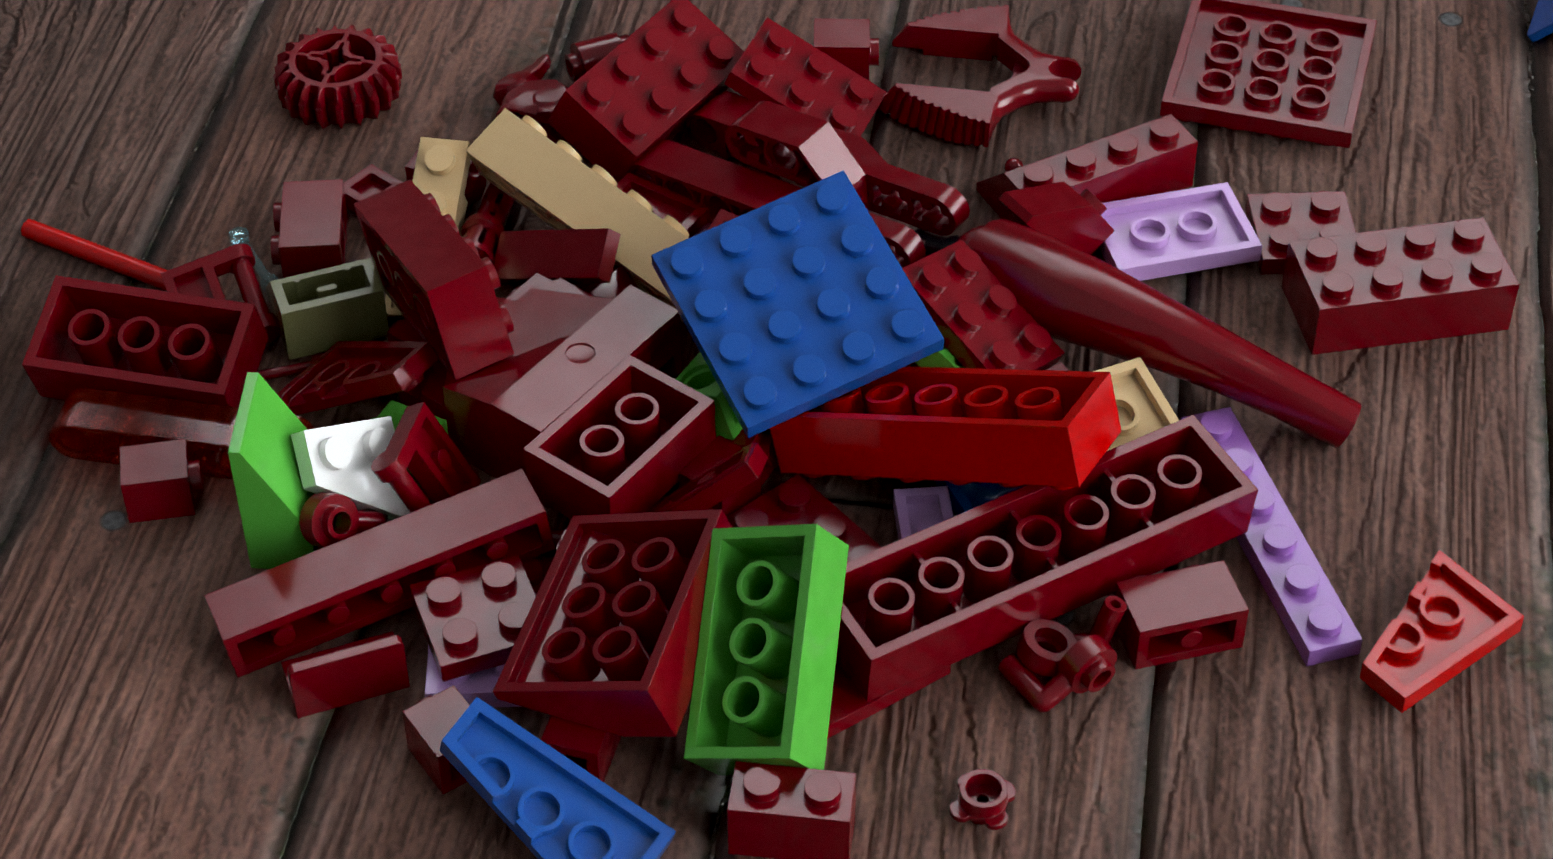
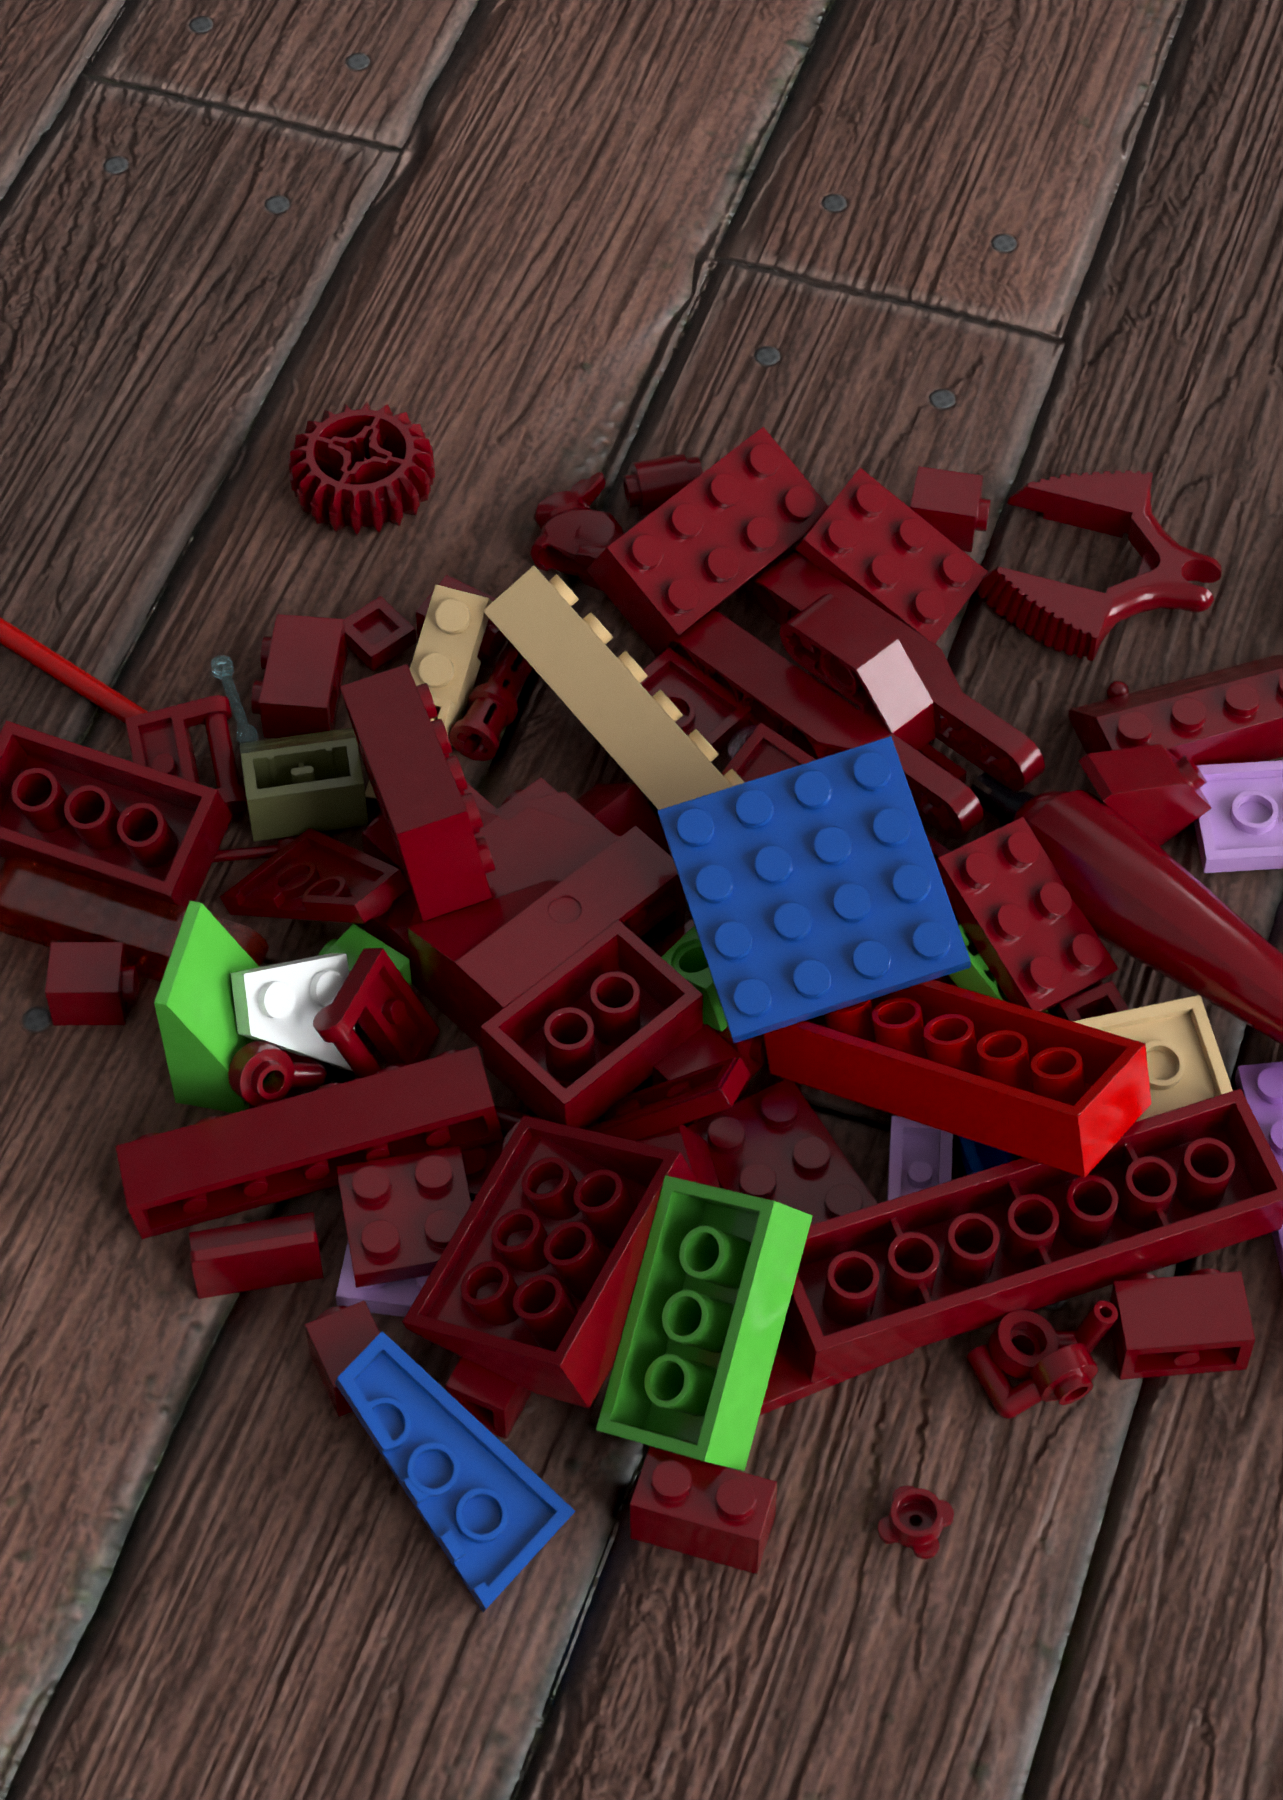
camera: 10 degrees right, 10 degrees up
(568, 254) = (564, 759): dark red tile -> none

